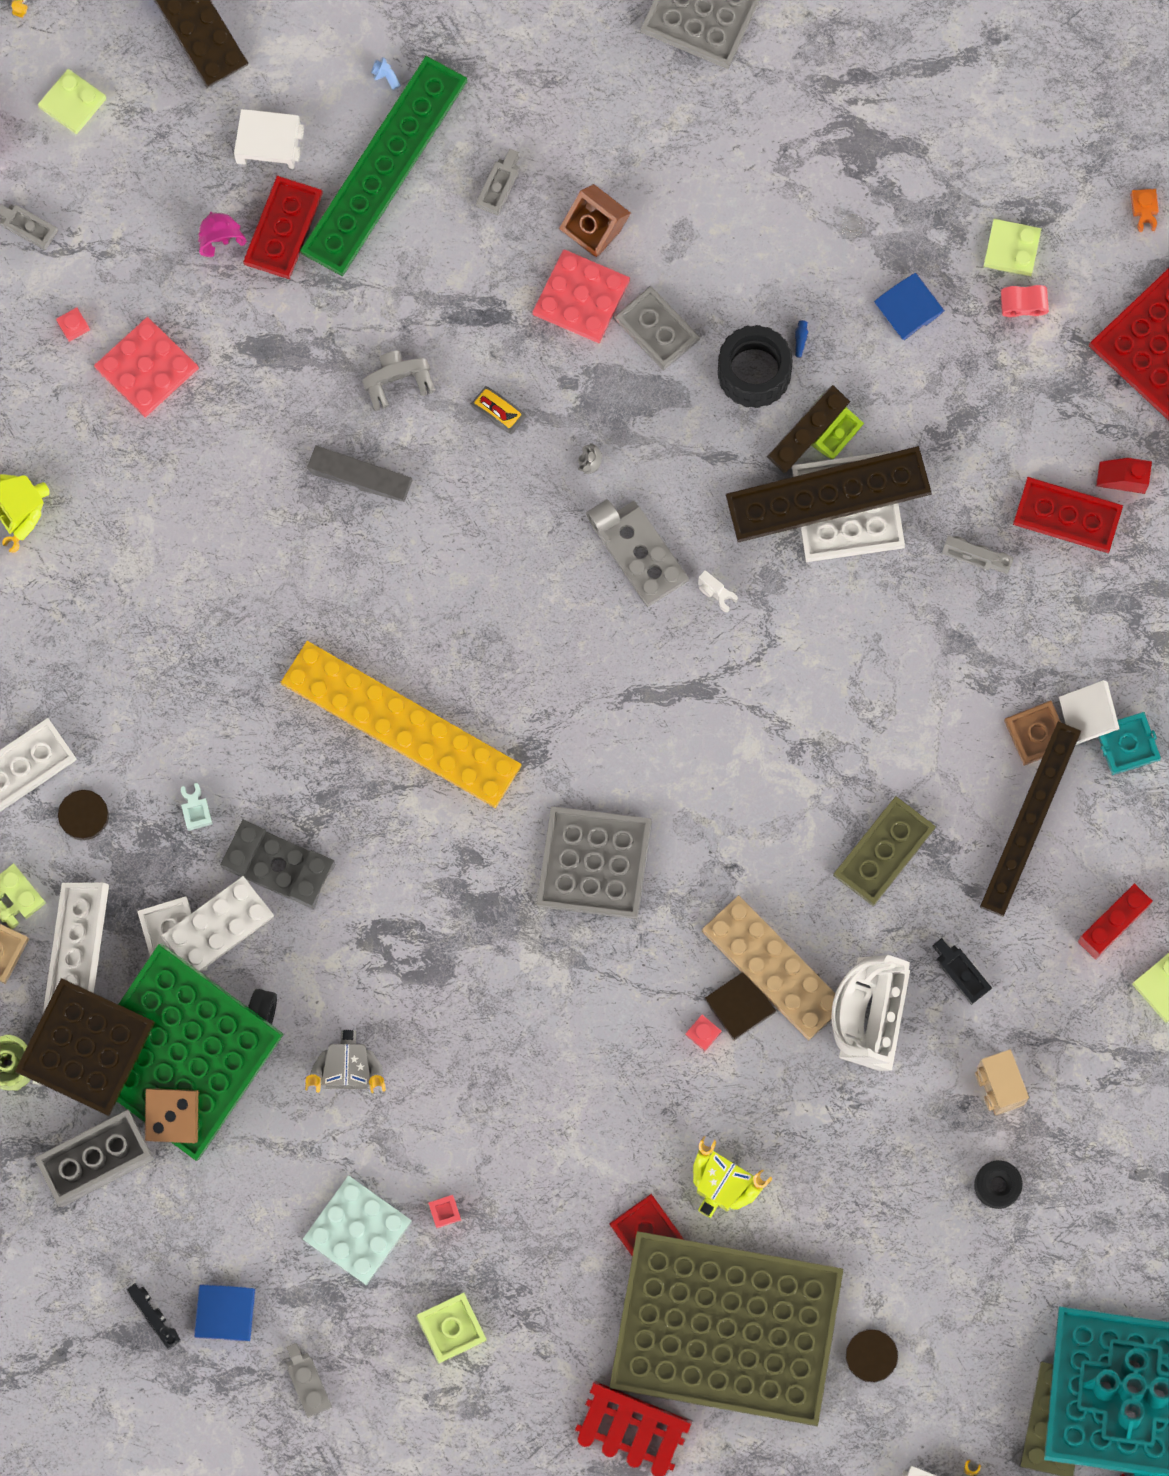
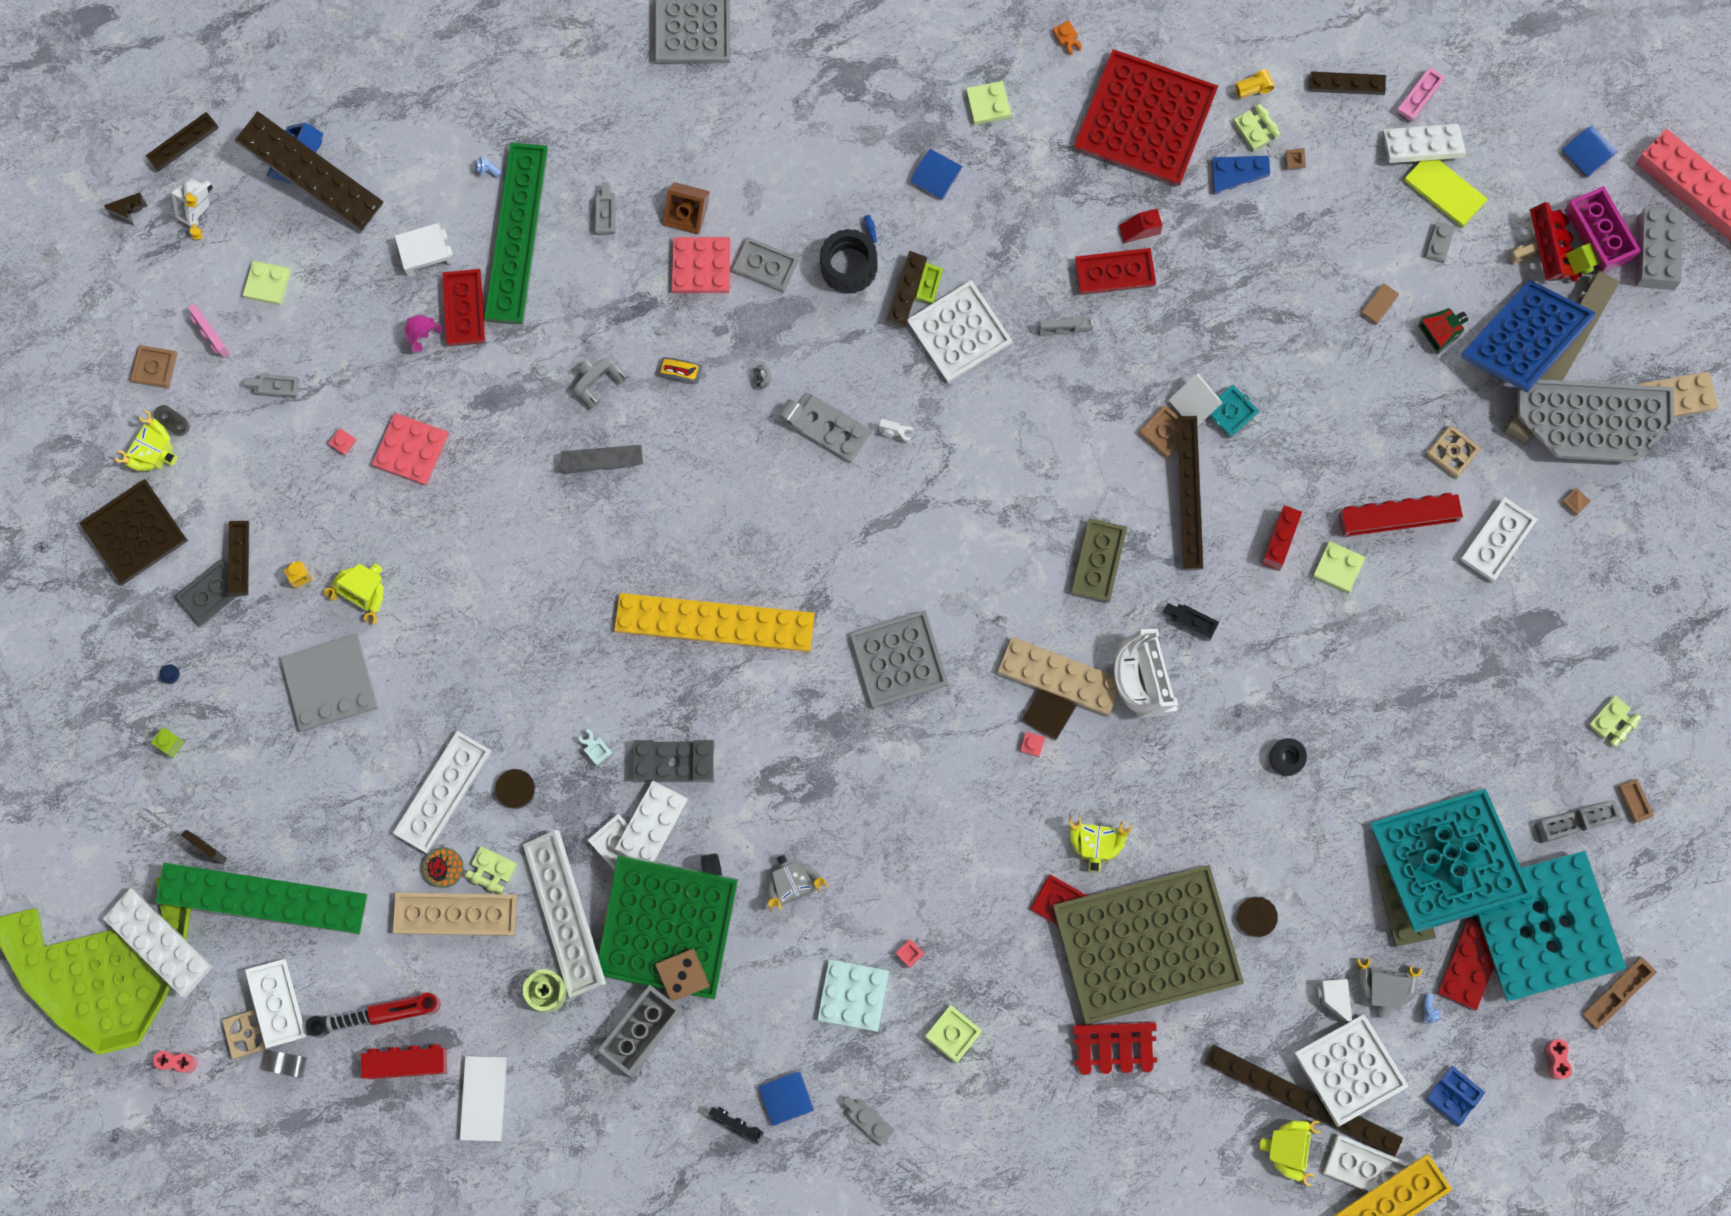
camera: 25 degrees left, 0 degrees up
(85, 1047) = (598, 953): dark brown plate -> none
(828, 494) = (942, 328): dark brown plate -> none
(1001, 1082) = (1258, 684): tan brick -> none
(1024, 301) = (1015, 136): coral axle -> none

